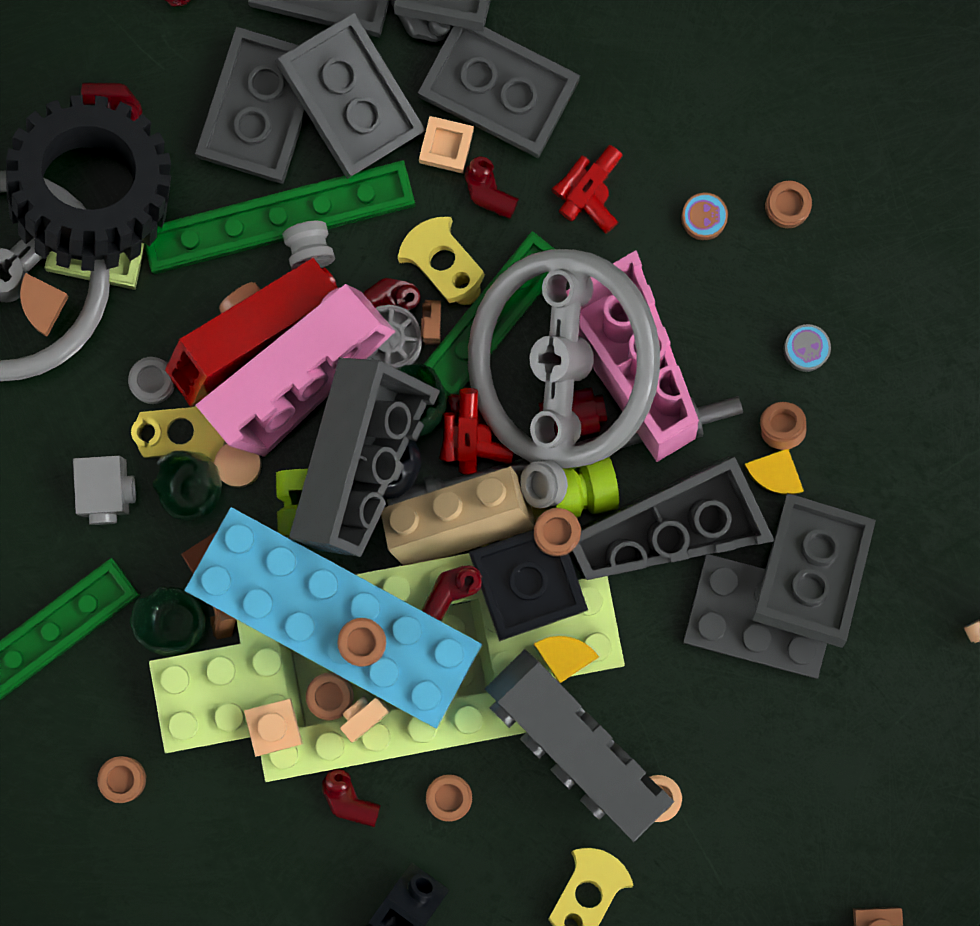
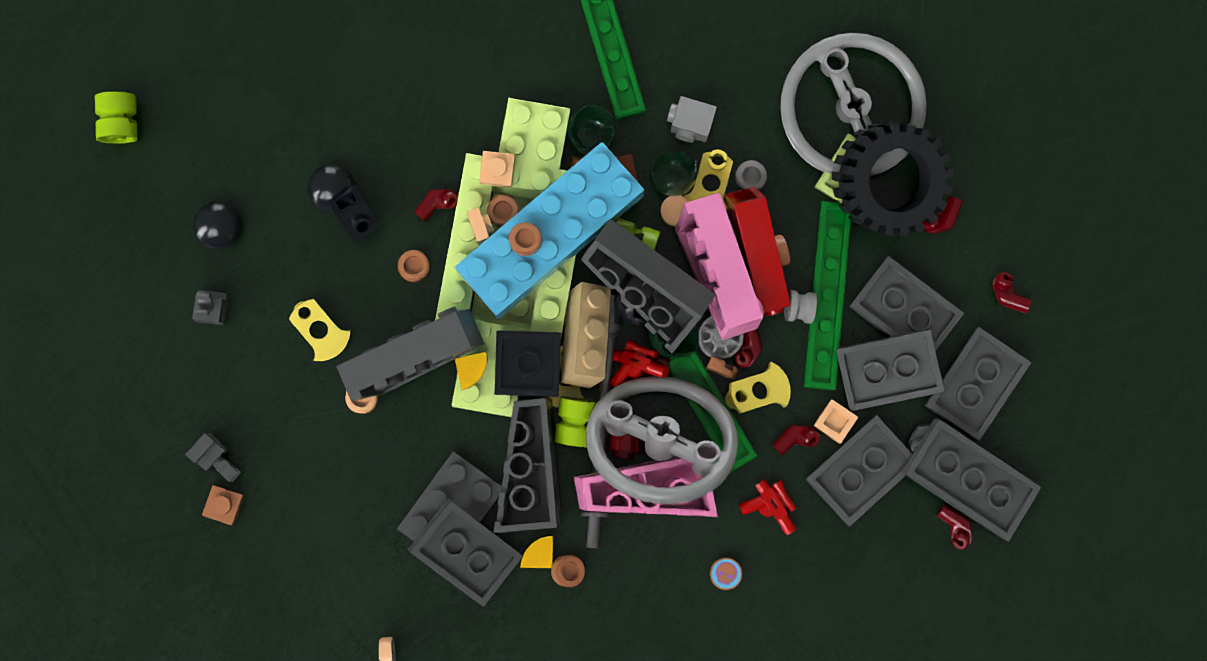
camera: 110 degrees right, 0 degrees up
(41, 303) = (824, 121): nougat tile -> none
(121, 779) = (504, 67): nougat tile -> none
(450, 587) = (543, 312): dark red arm -> none
(543, 484) = (585, 396): light grey tile -> none
(557, 532) = (551, 392): nougat tile -> none
(788, 204) = (713, 632): nougat tile -> none
(807, 348) = (613, 607): tile -> none

